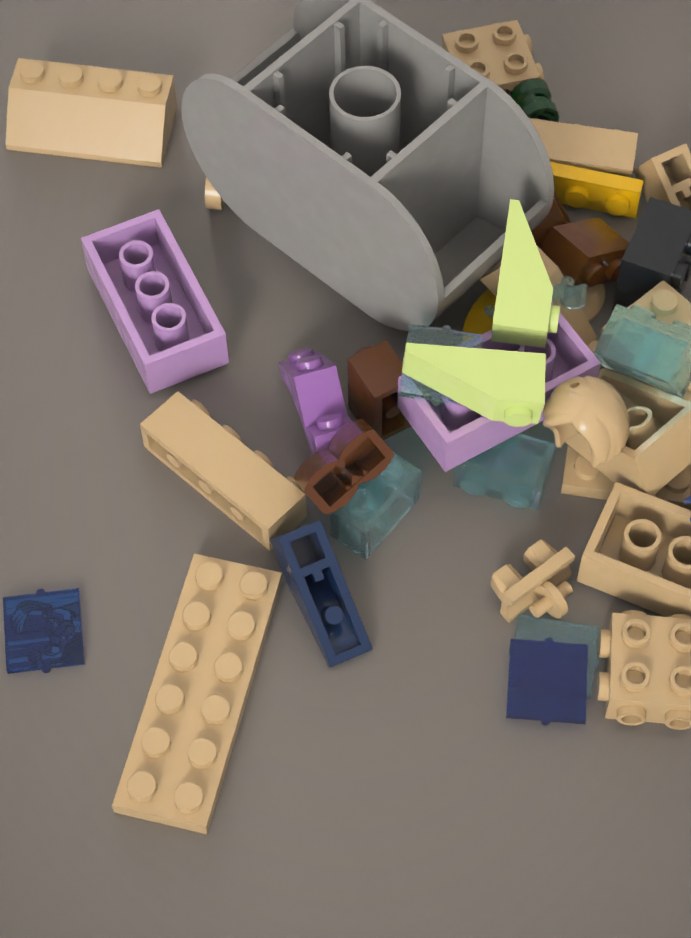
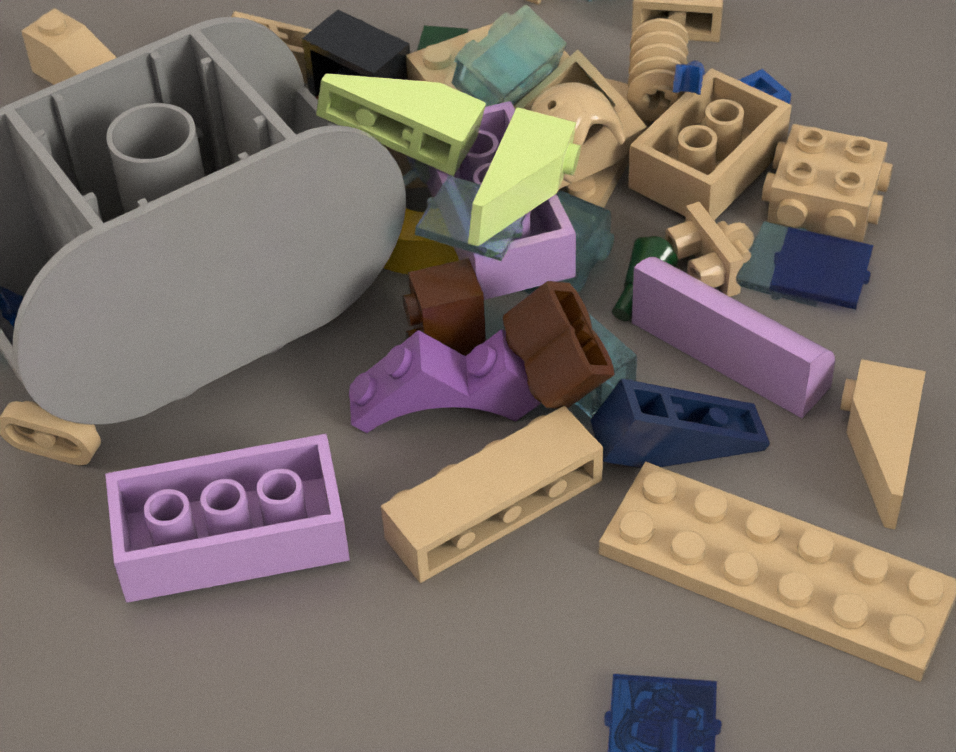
camera: 75 degrees left, 10 degrees down
(357, 749) = (882, 429): none -> tan slope
(431, 611) = (730, 337): none -> lavender brick
(502, 537) = (642, 249): none -> dark green cone
(619, 72) = (62, 47): none -> tan slope

